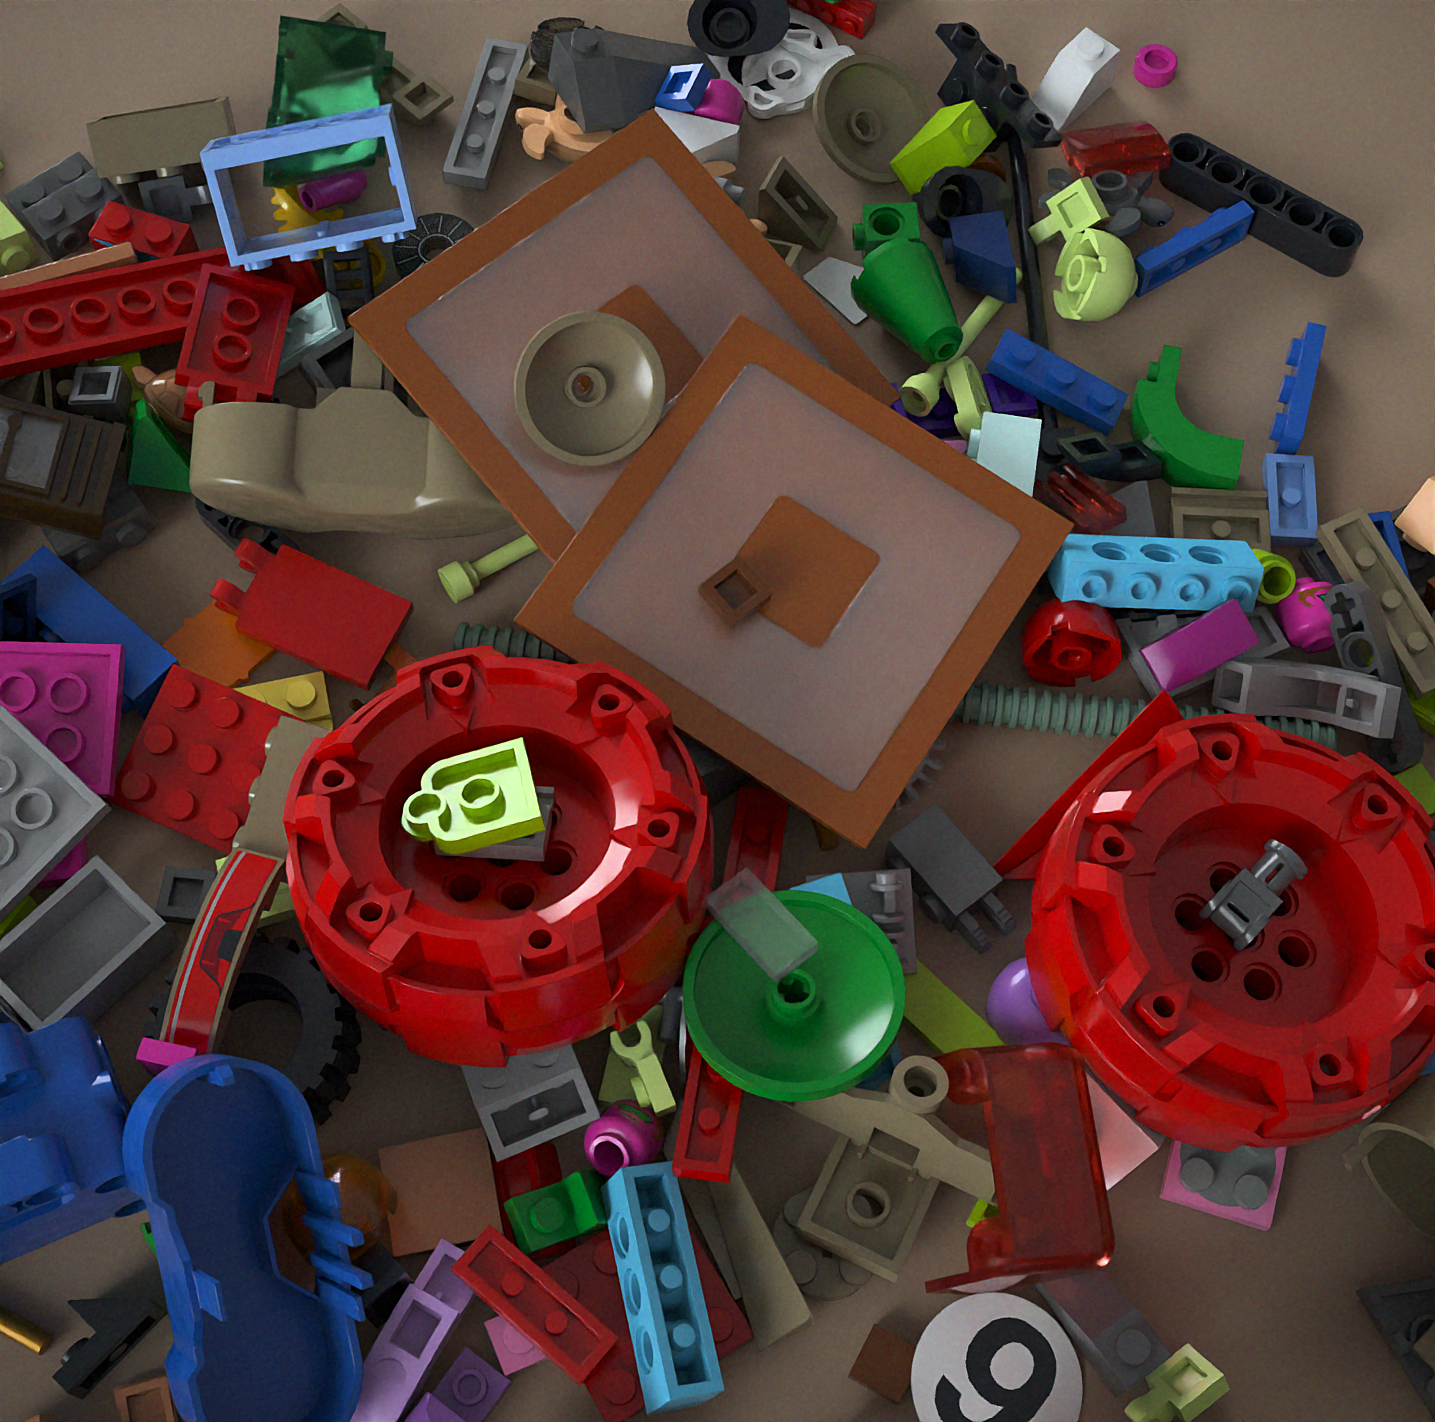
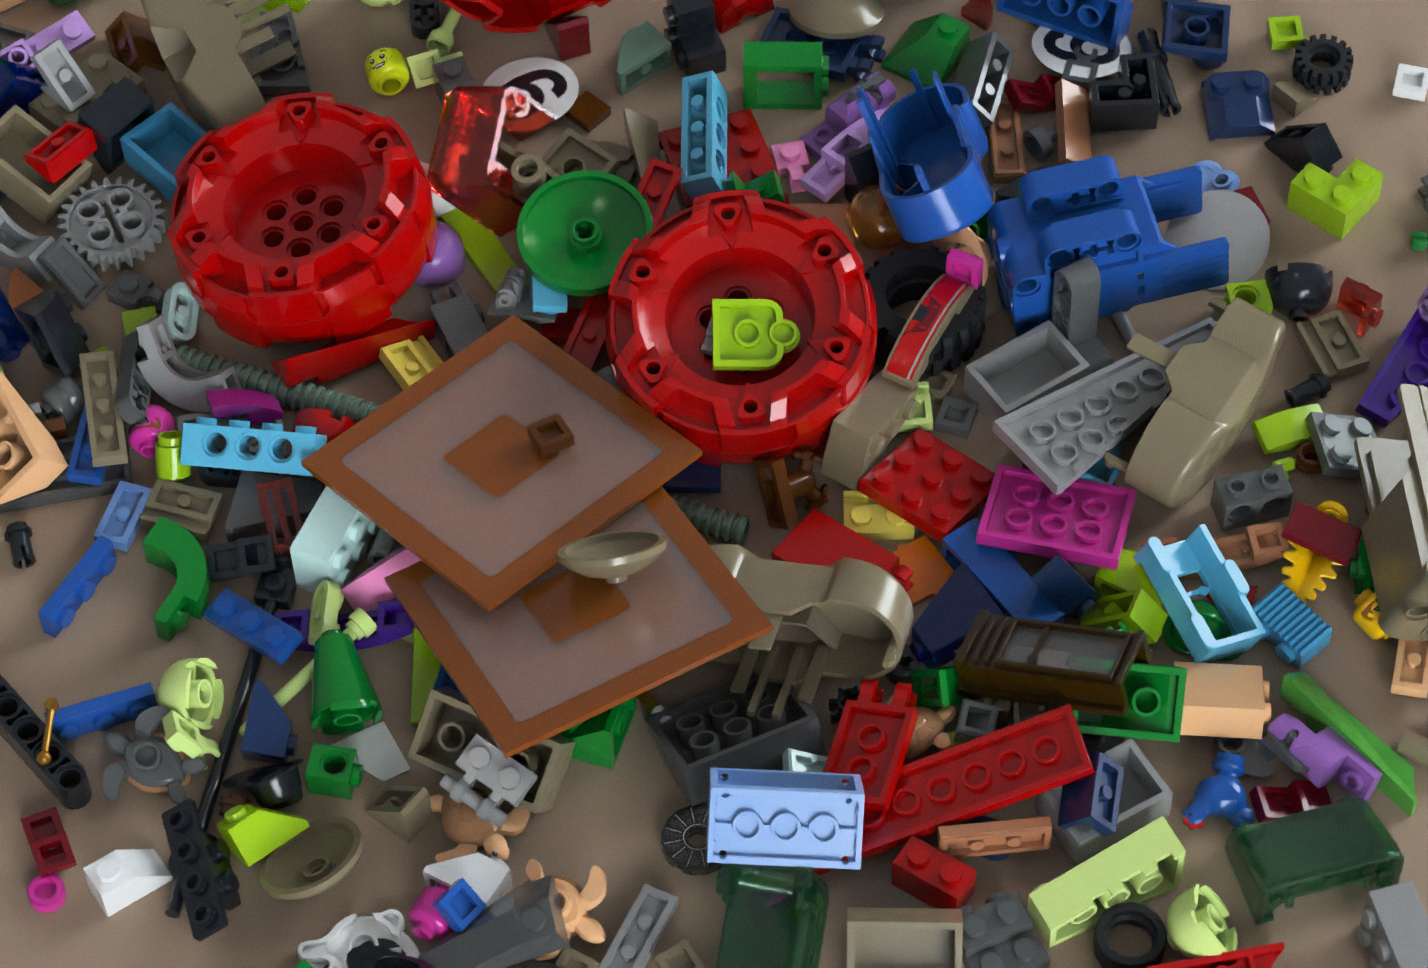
camera: 165 degrees left, 10 degrees down
(154, 566) = (949, 618): none -> clear blue slope
(534, 1304) = (778, 149): red plate -> none
(761, 924) = (591, 263): clear tile -> none
(987, 799) = (409, 360): none -> light yellow plate
(1118, 147) = (121, 807): clear red slope -> none
(1172, 102) = (48, 842): none -> dark red slope
(1248, 901) = (293, 222): dark grey connector -> none
(1249, 215) = (51, 706): none -> pearl gold hinge
(1250, 1355) = (386, 71): none -> neon yellow head
(1401, 438) = (18, 536): none -> black pin

